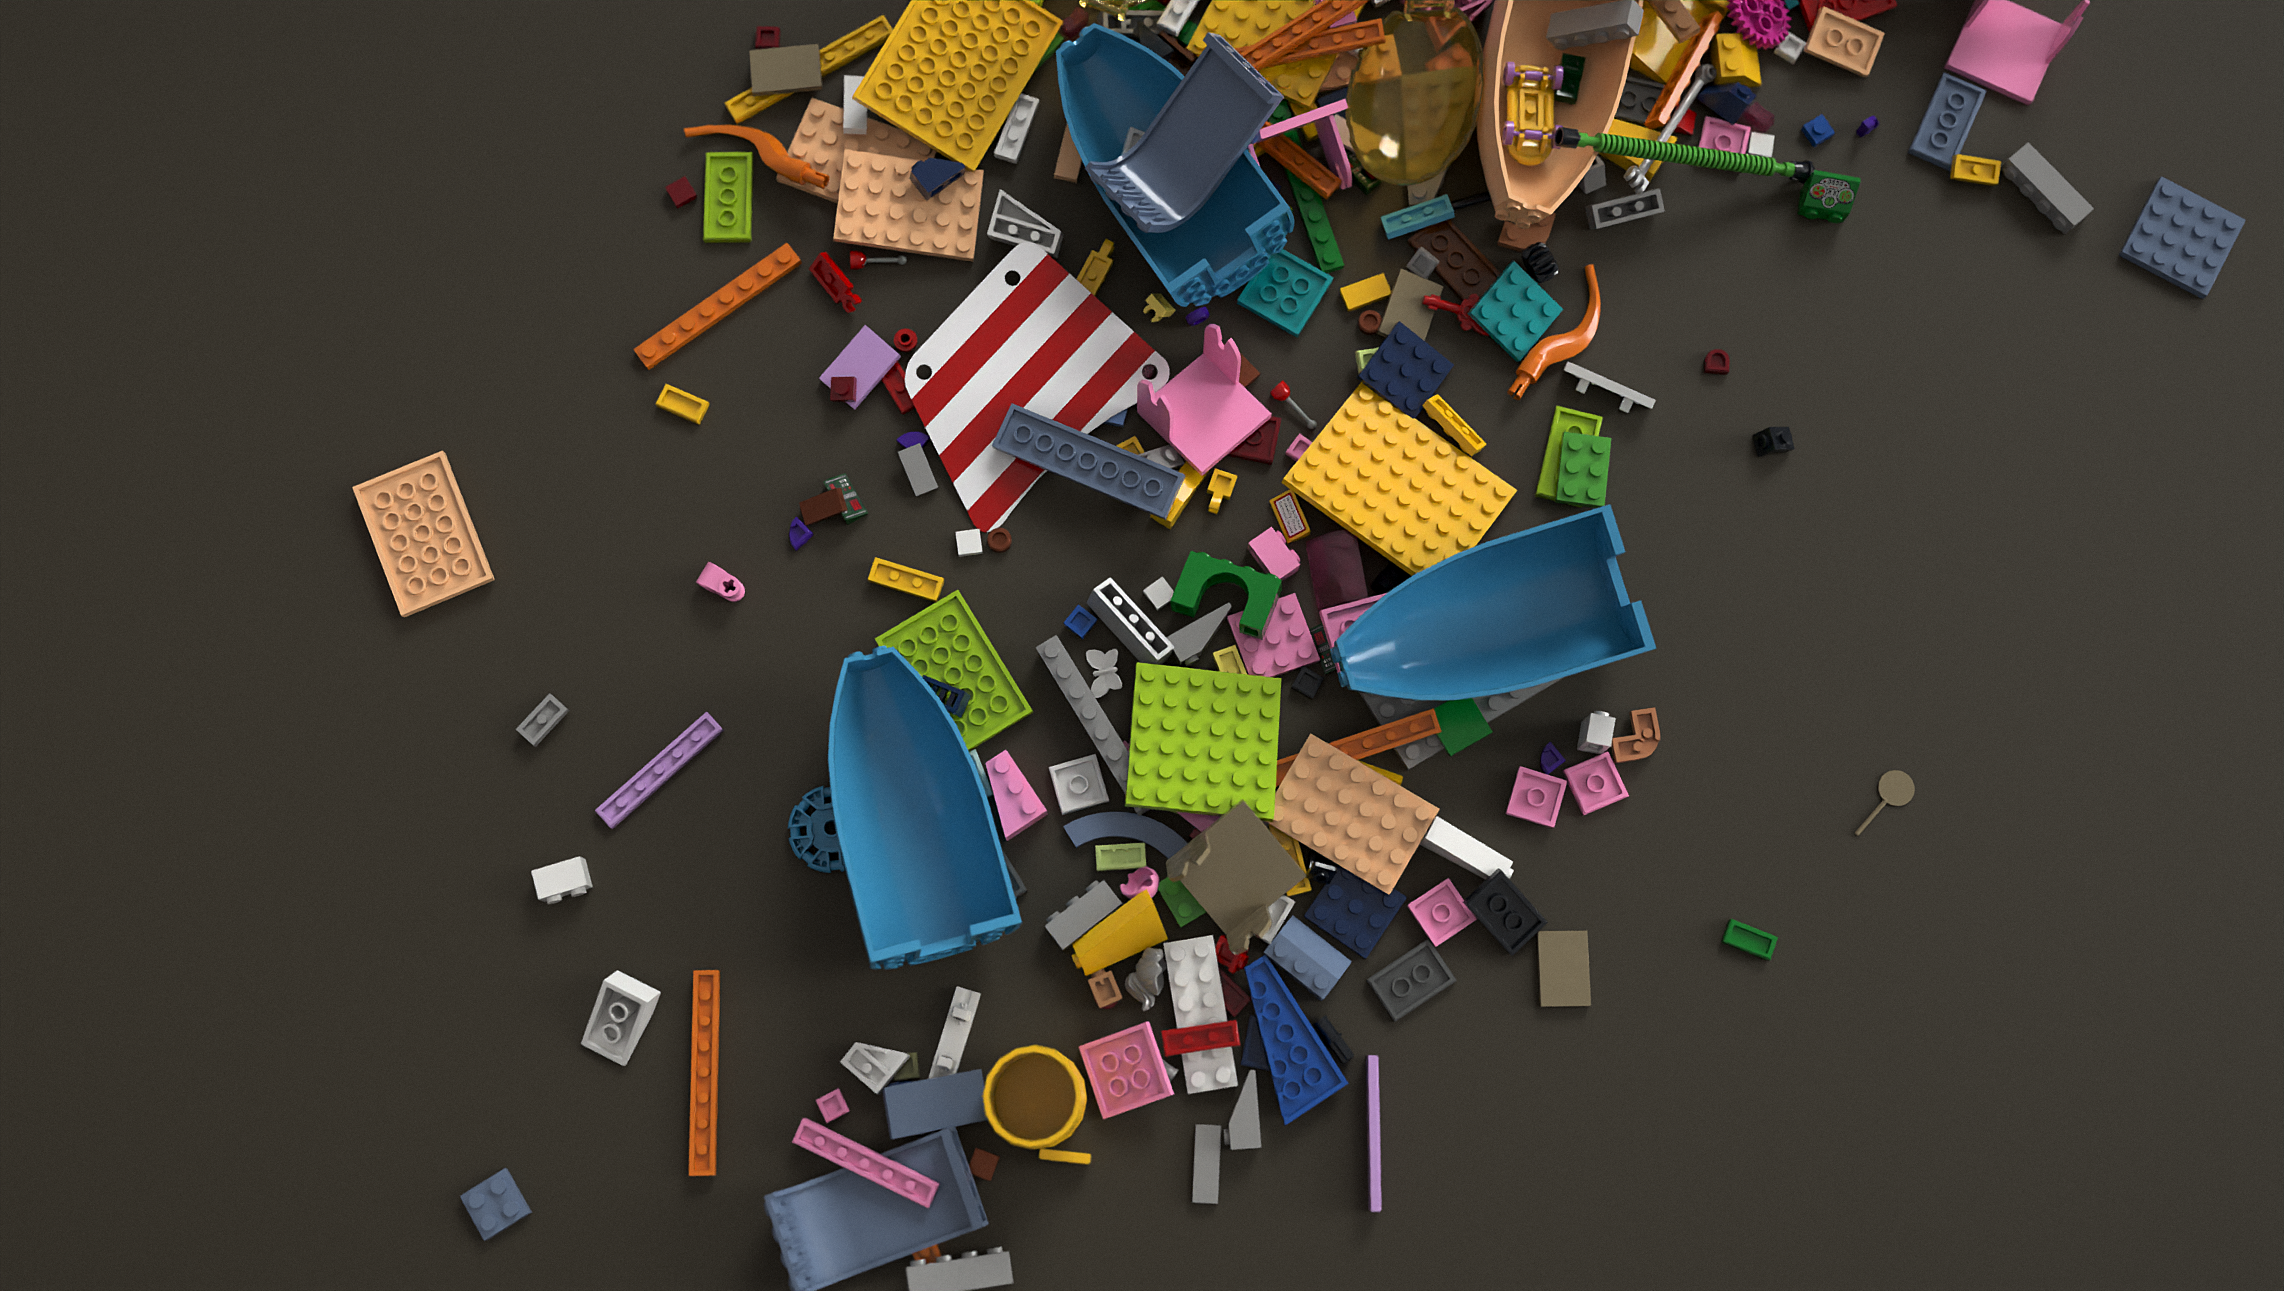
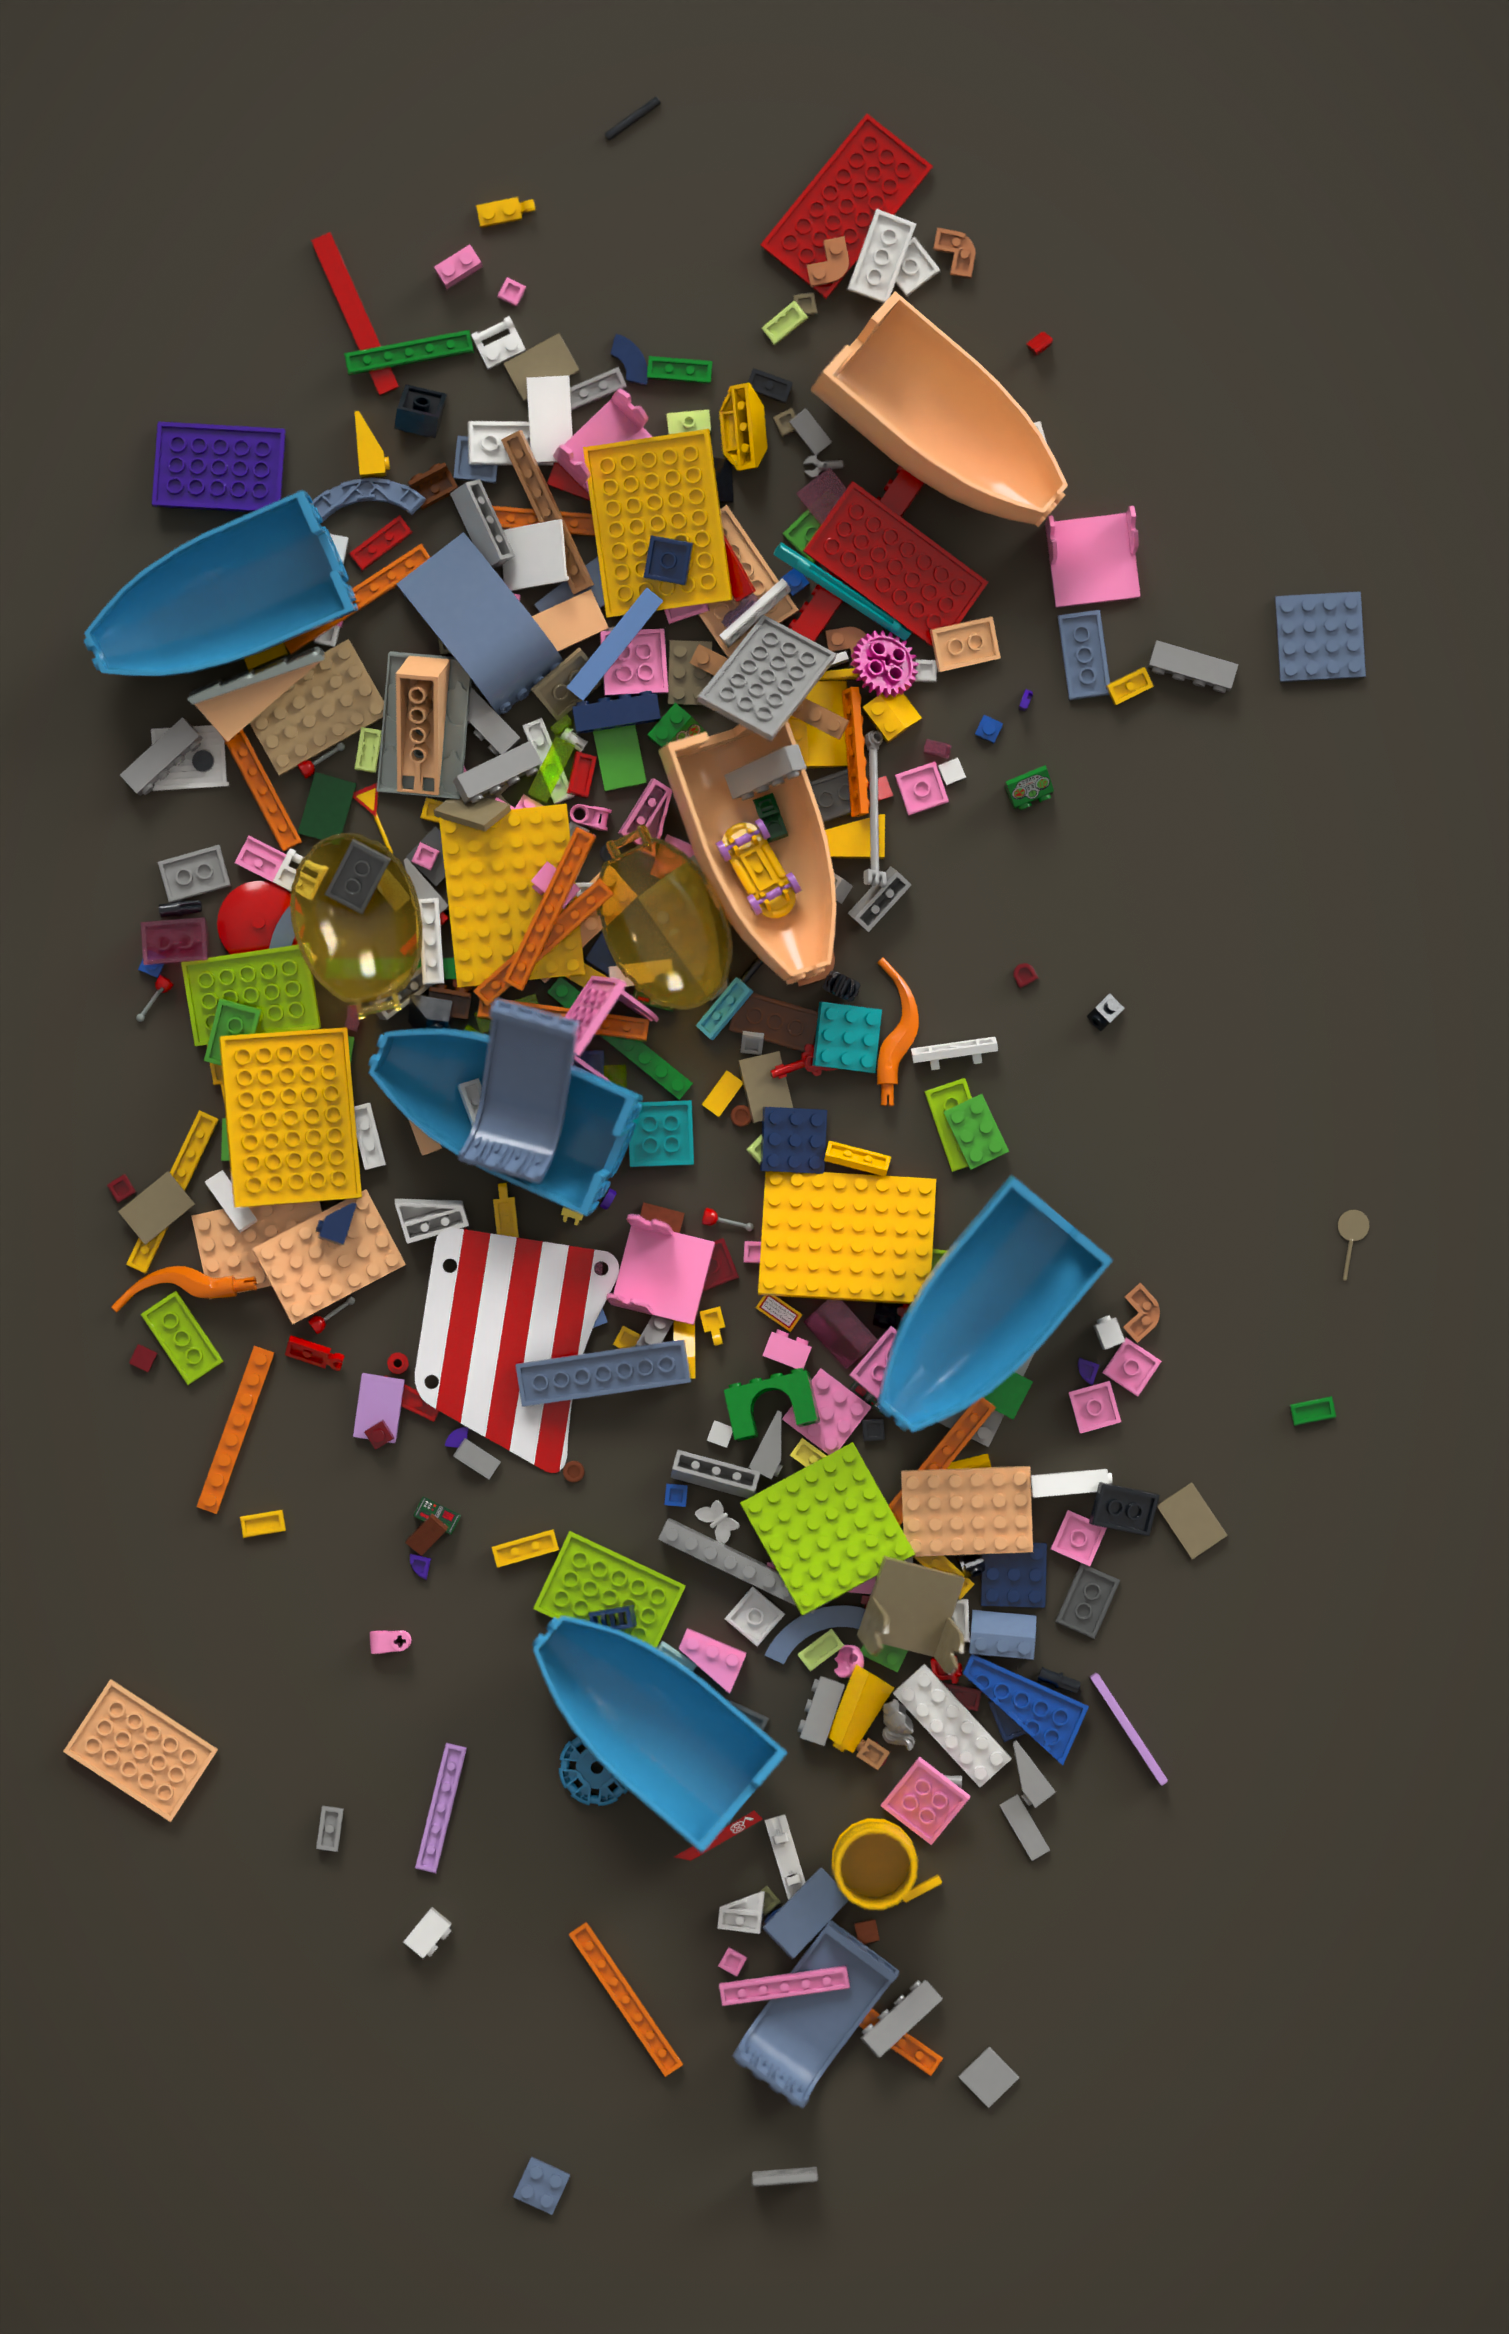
camera: 30 degrees left, 10 degrees up
(620, 1017) = (538, 2001): white slope -> none
(905, 975) = (725, 1834): none -> red sticker
(969, 542) = (552, 1488): white tile -> none
(1200, 1037) = (963, 1743): red tile -> none
(1683, 154) = (901, 835): bright green hose -> none
(1728, 100) = (903, 753): dark blue slope -> none

